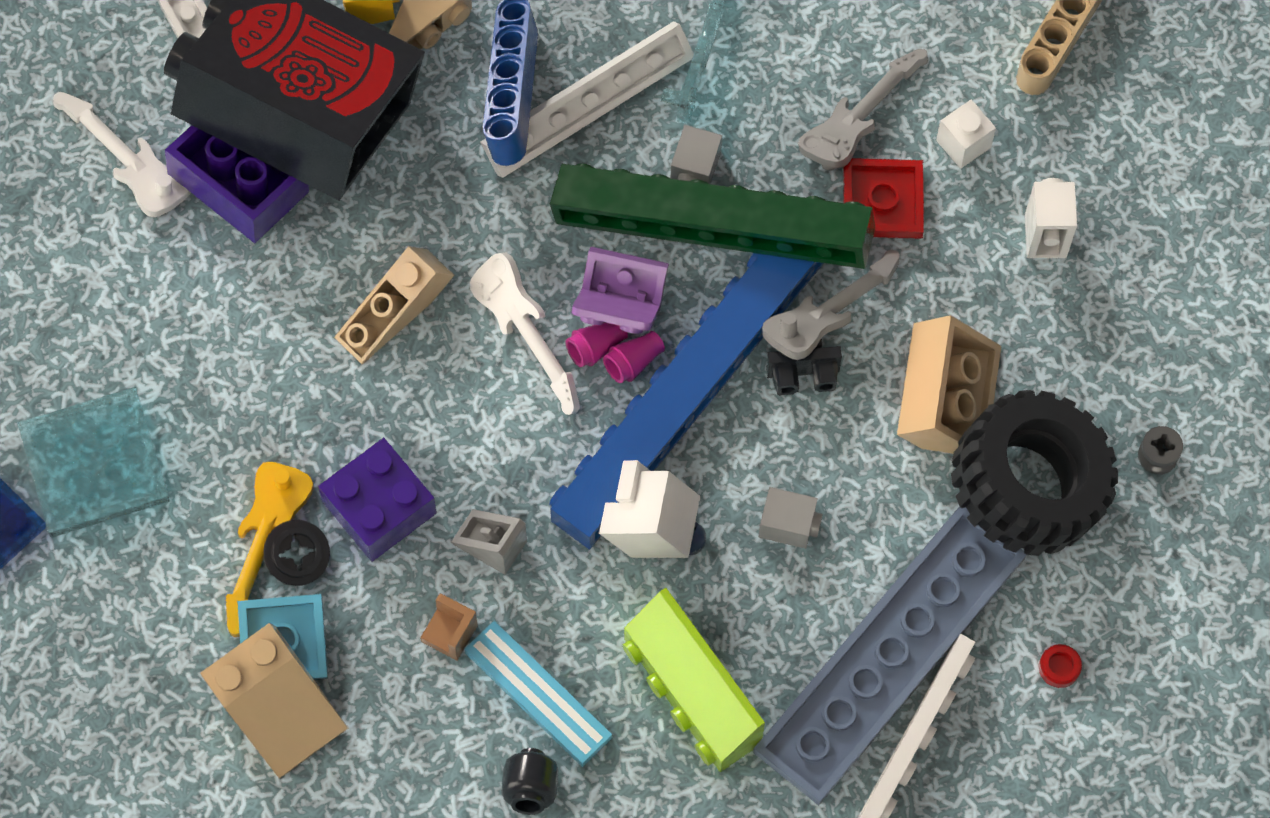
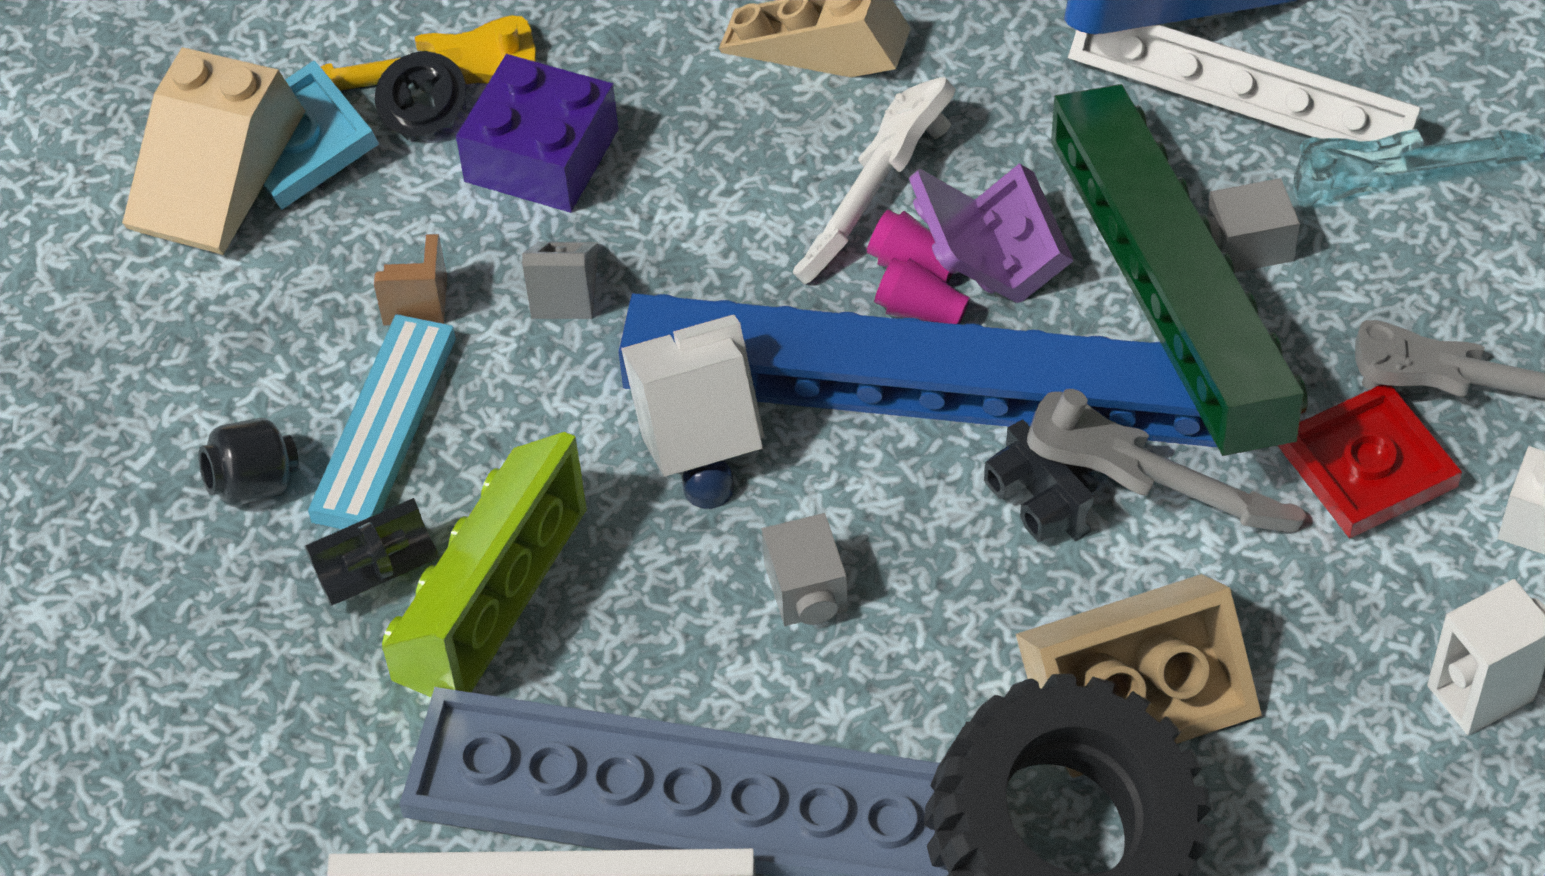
camera: 65 degrees right, 15 degrees down
(643, 740) = (371, 552): none -> black hips

